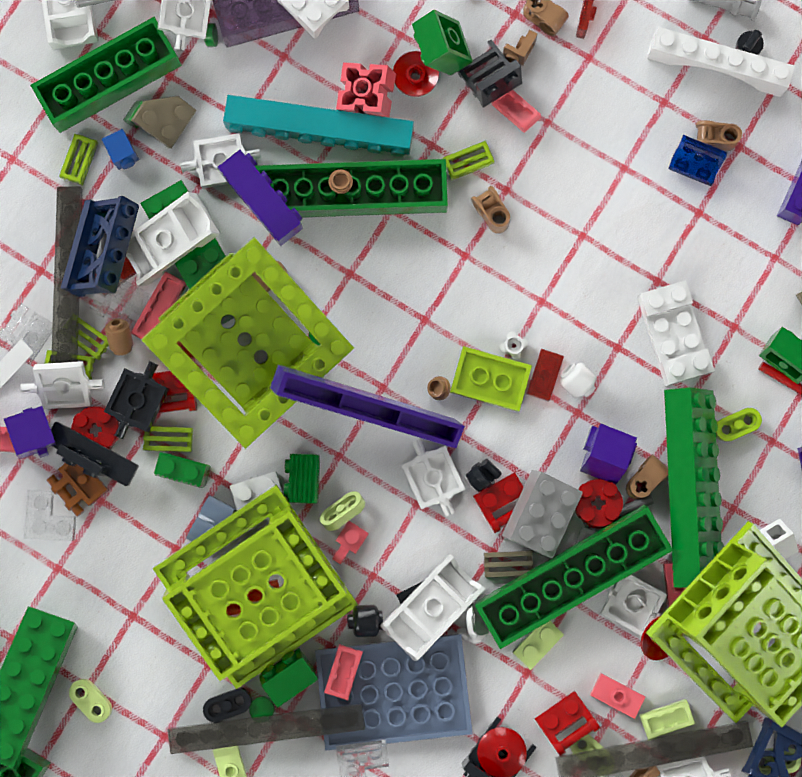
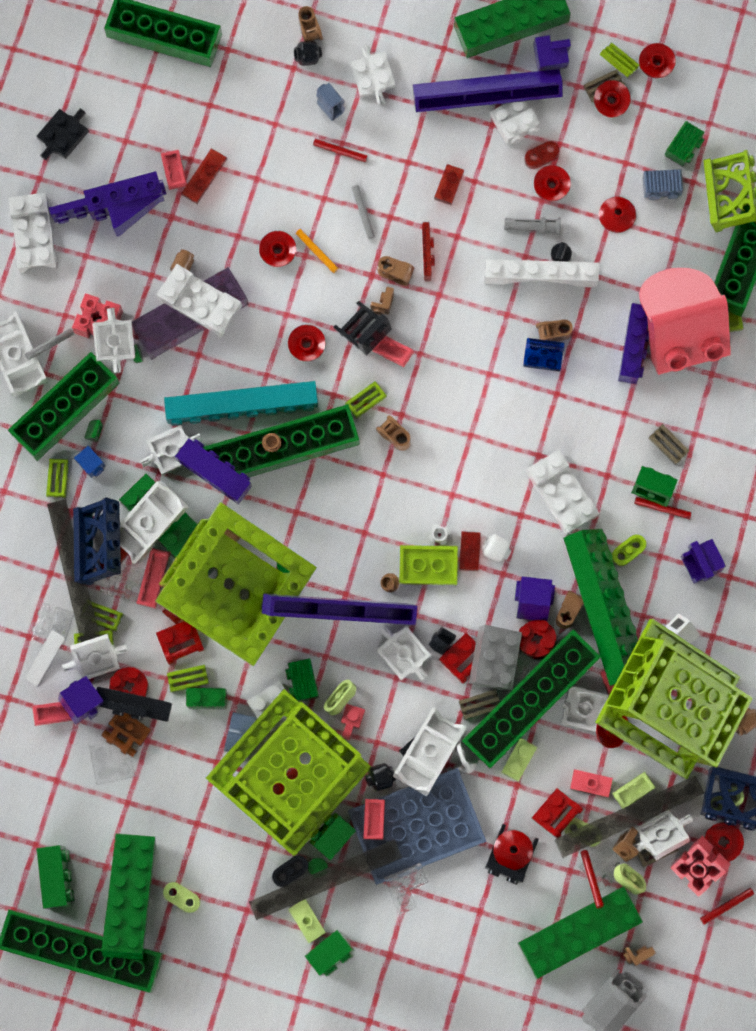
camera: 15 degrees left, 5 degrees down
(119, 336) = (129, 608): medium nougat brick -> none
(136, 400) = (156, 653): black plate -> none
(164, 118) = (118, 428): dark tan plate -> none
(366, 89) = (264, 359): coral brick -> none
(441, 42) = (321, 314): green brick -> none

